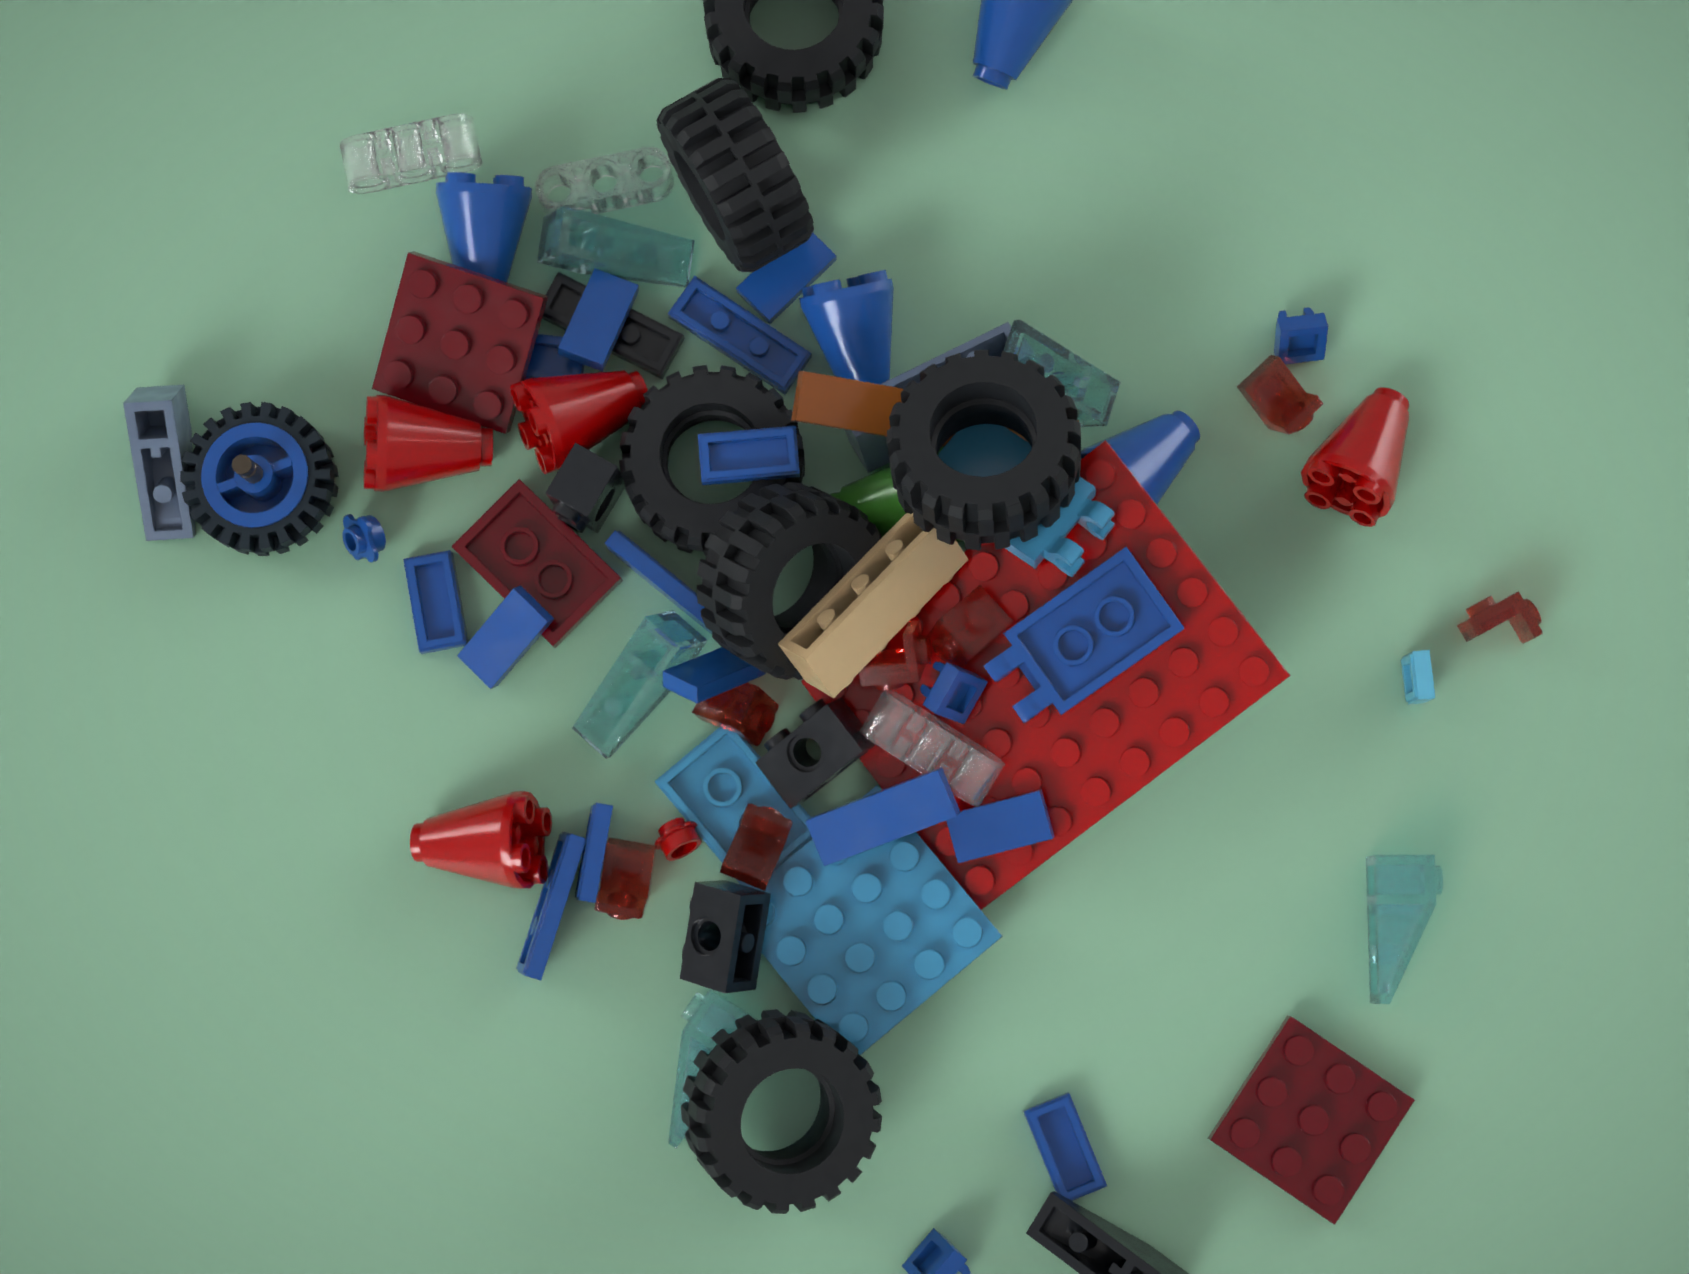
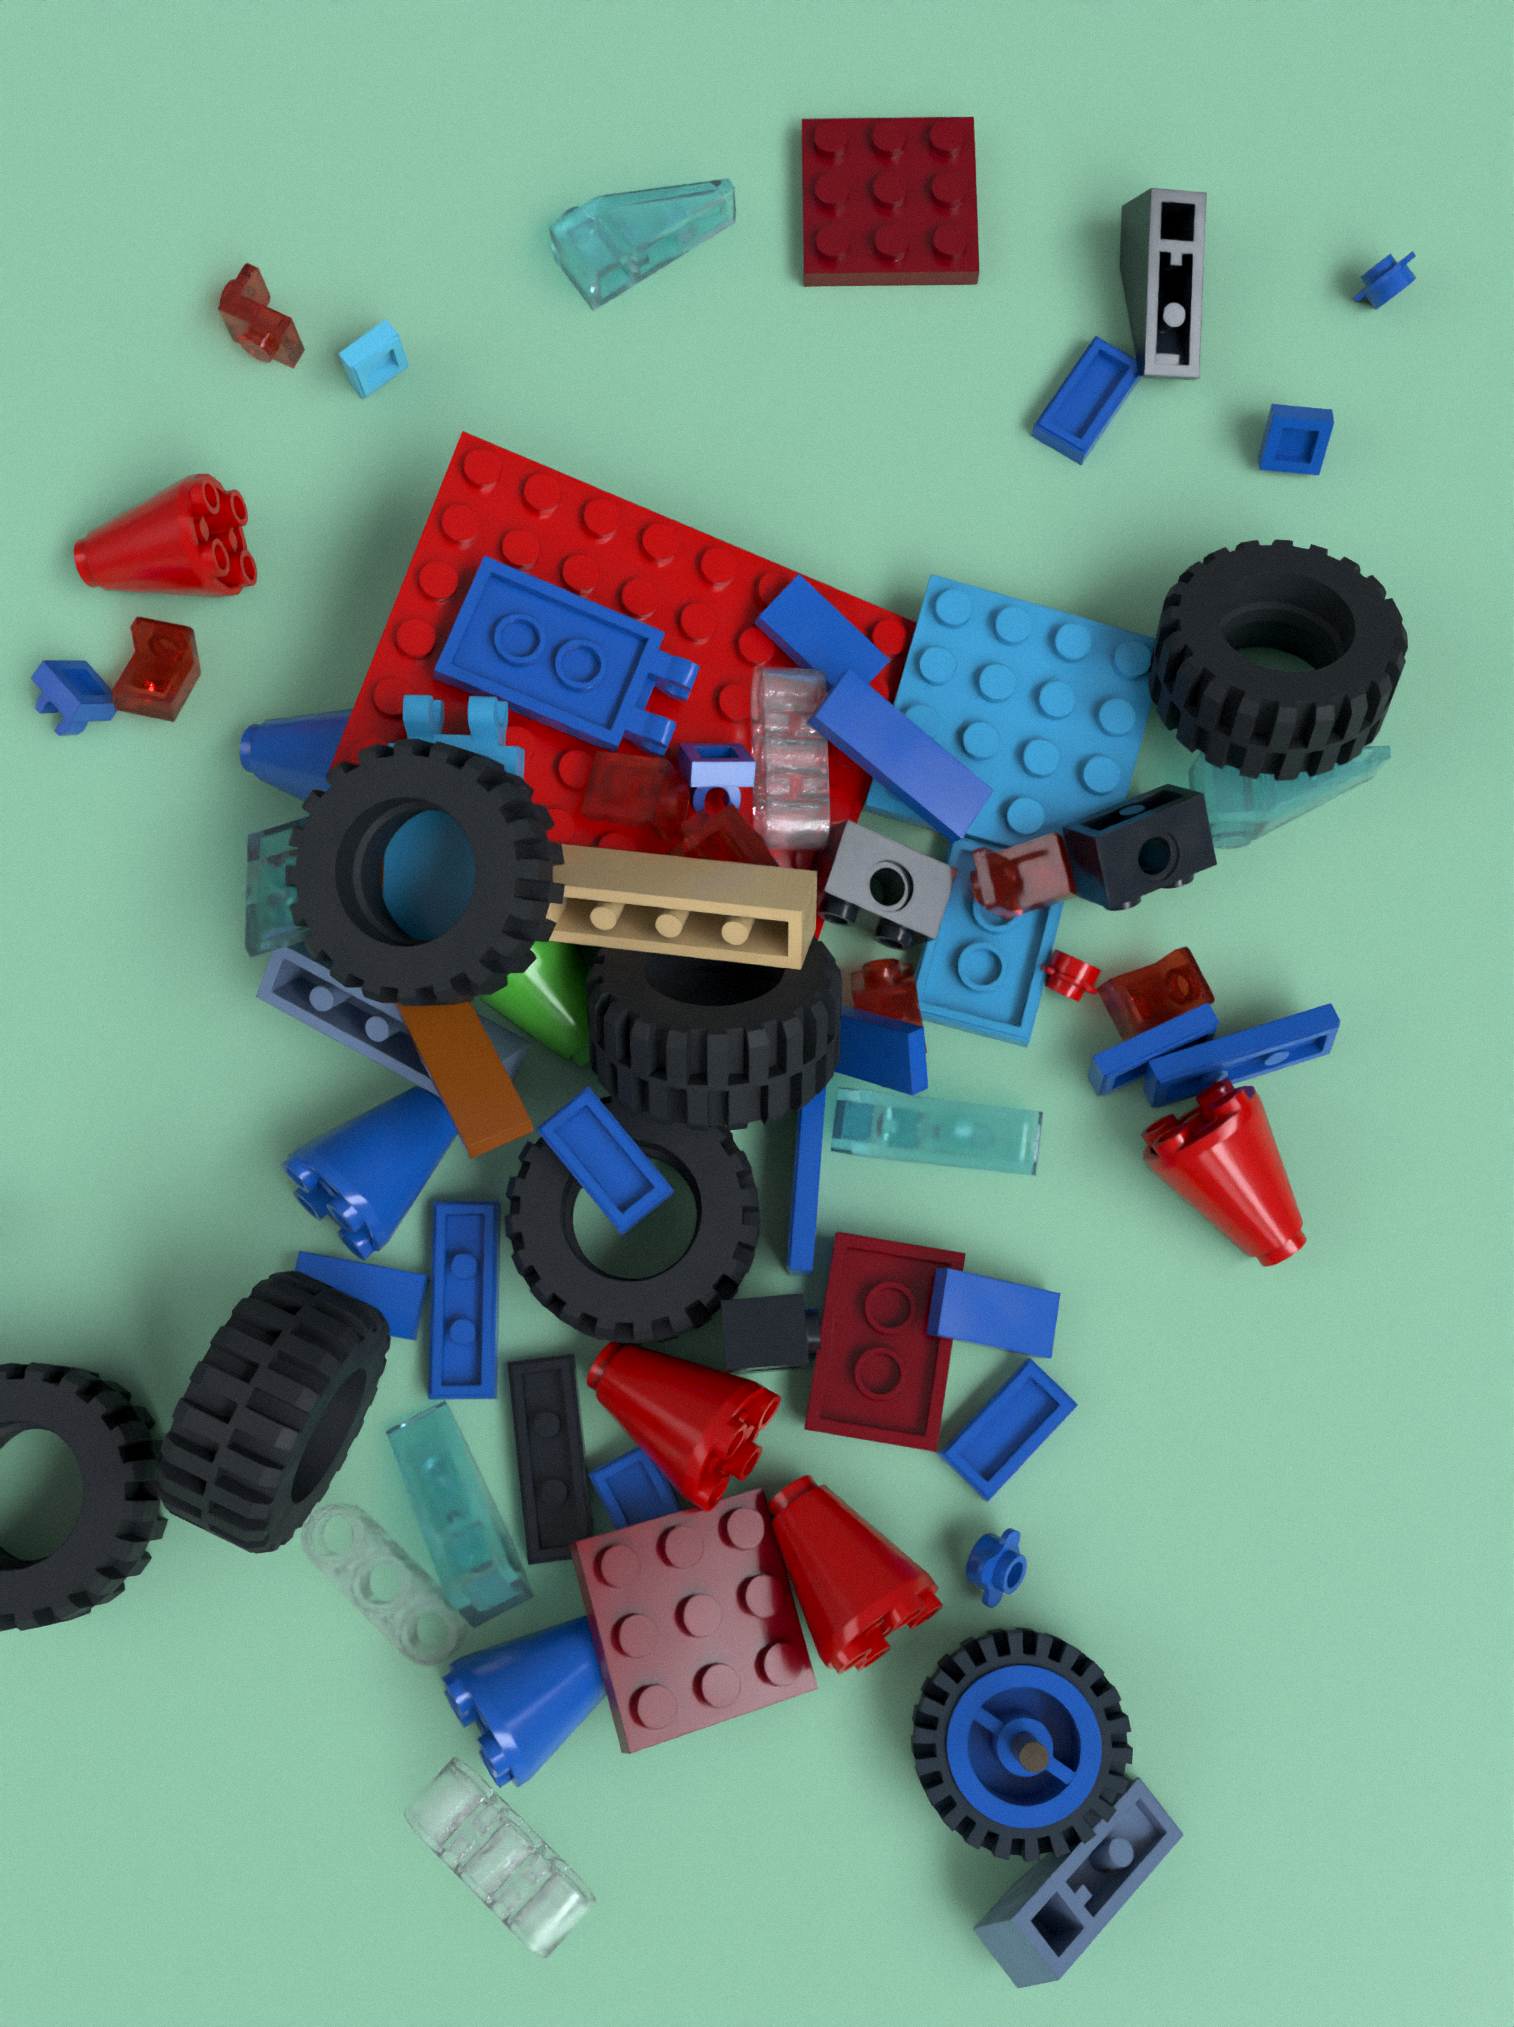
camera: 125 degrees left, 5 degrees down
(598, 319) = (556, 1467): blue tile -> none

